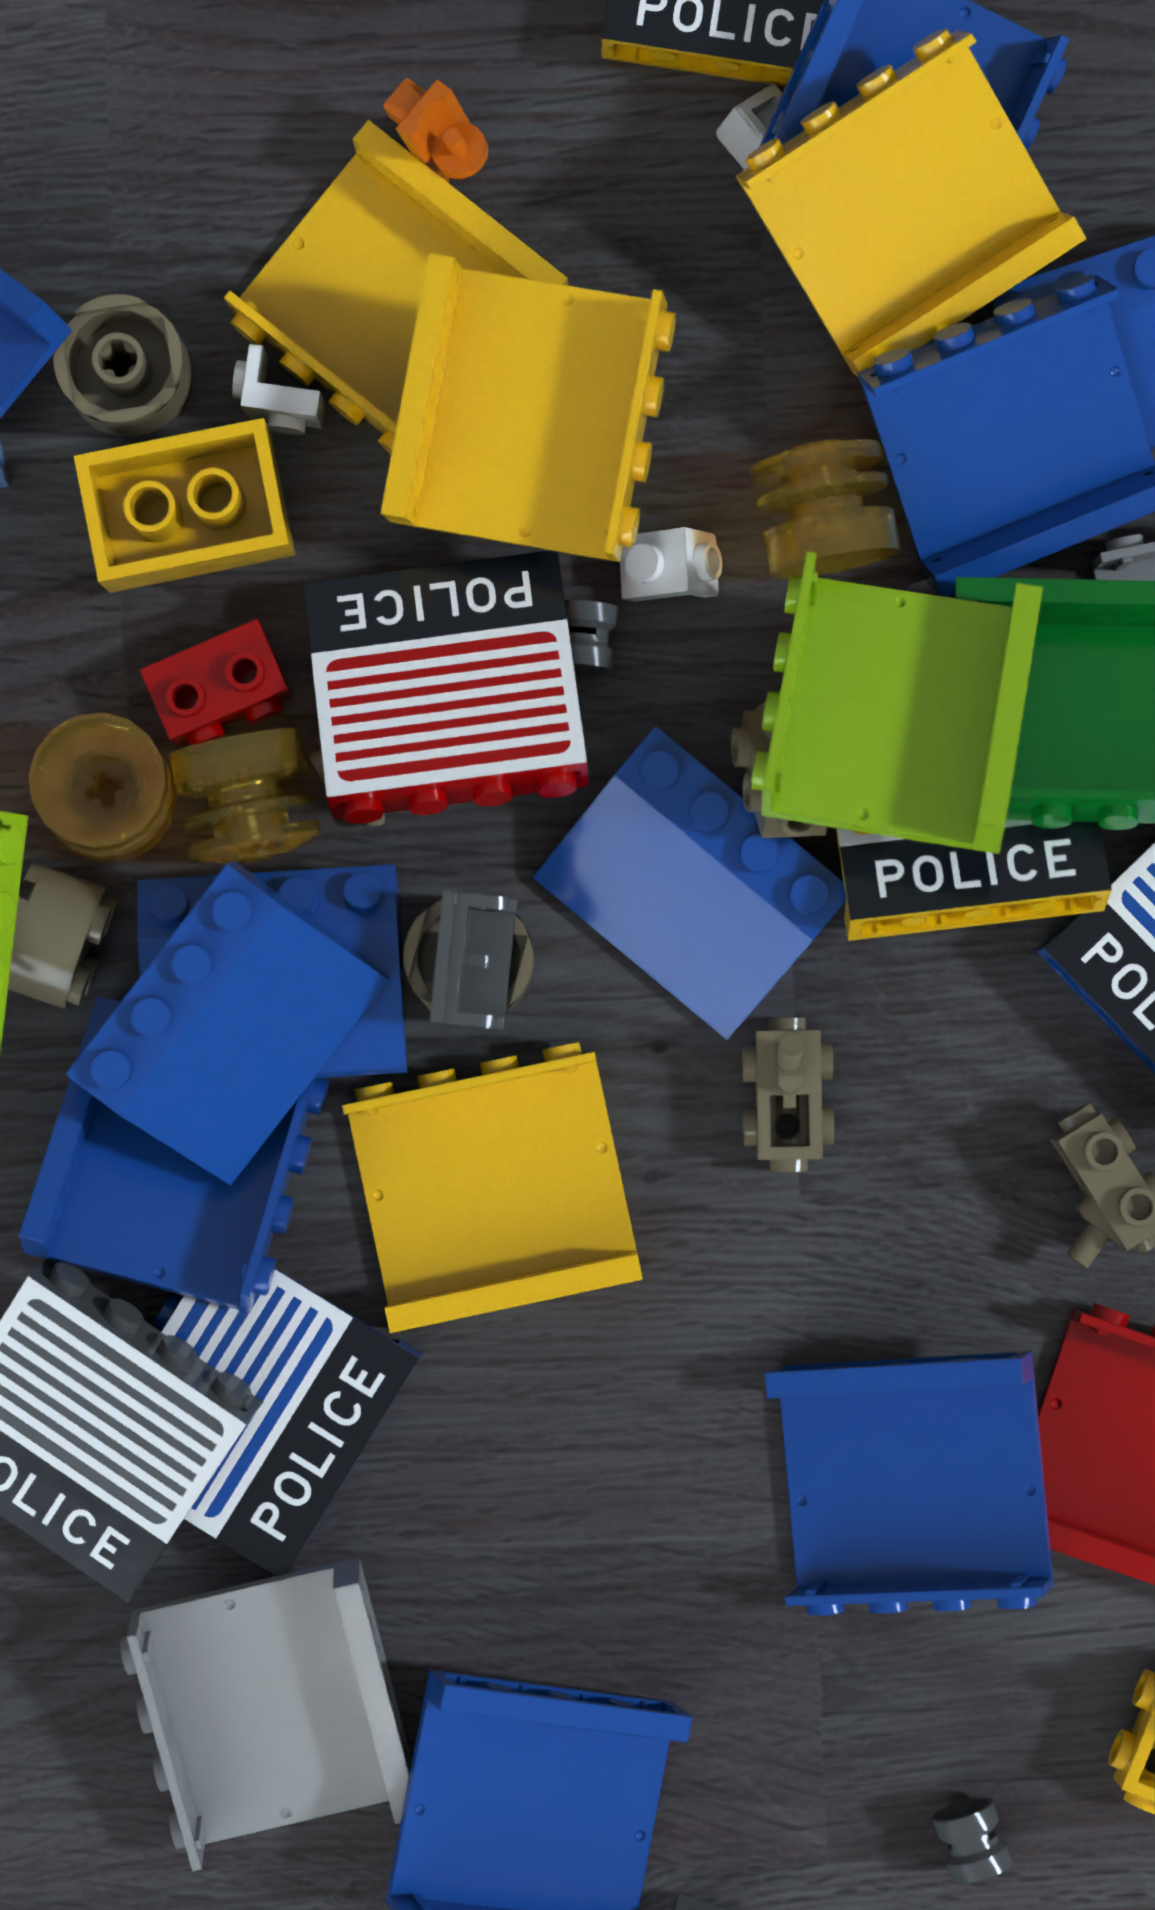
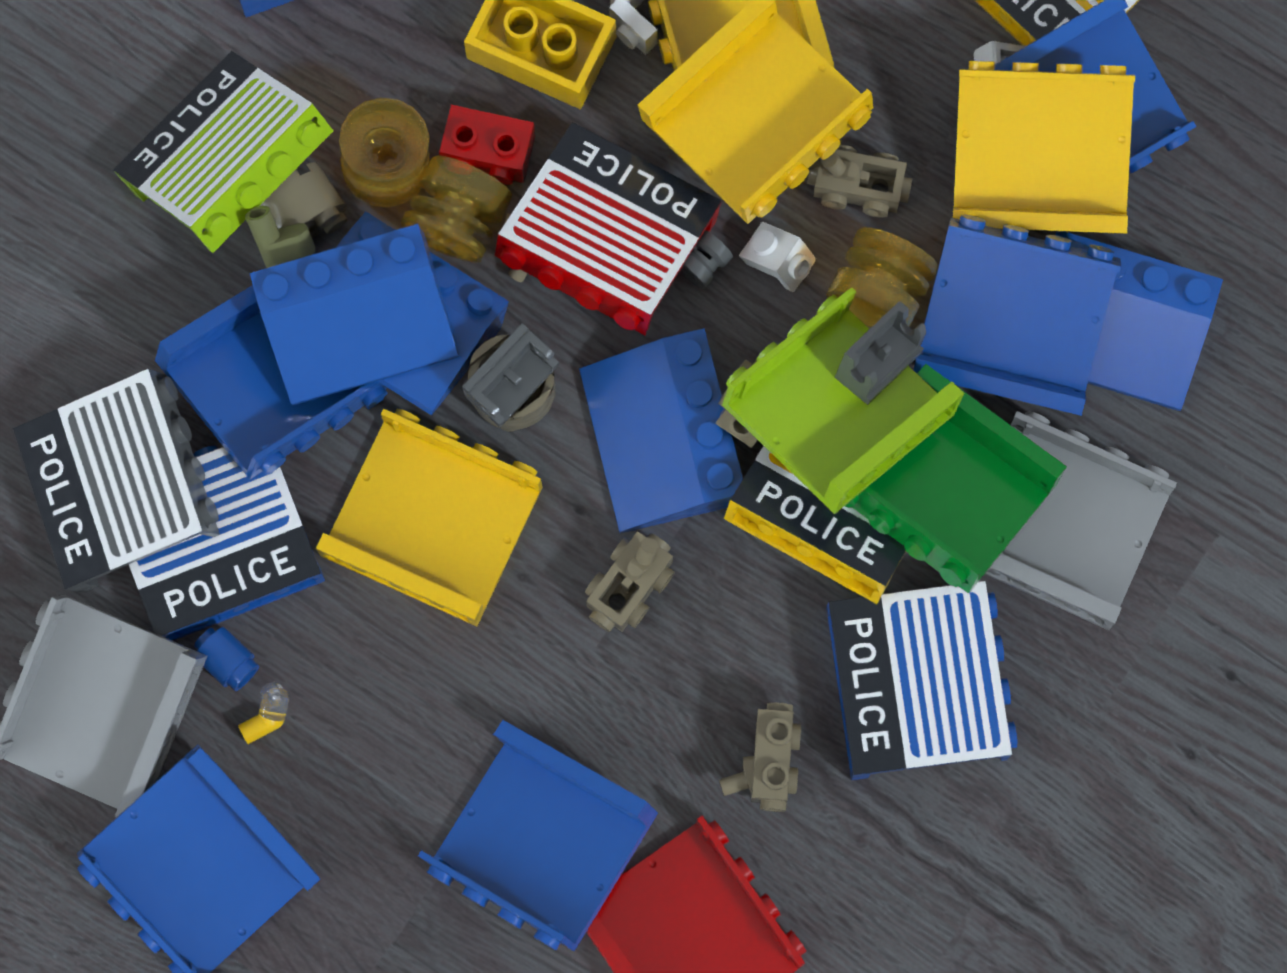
camera: 30 degrees right, 10 degrees down
(71, 1005) = (280, 244): none -> olive piece
(380, 1534) = (226, 658): none -> blue brick
(480, 1559) = (270, 715): none -> arm
(691, 400) = (850, 177): none -> dark tan brick
(904, 610) = (881, 354): none -> dark grey hinge

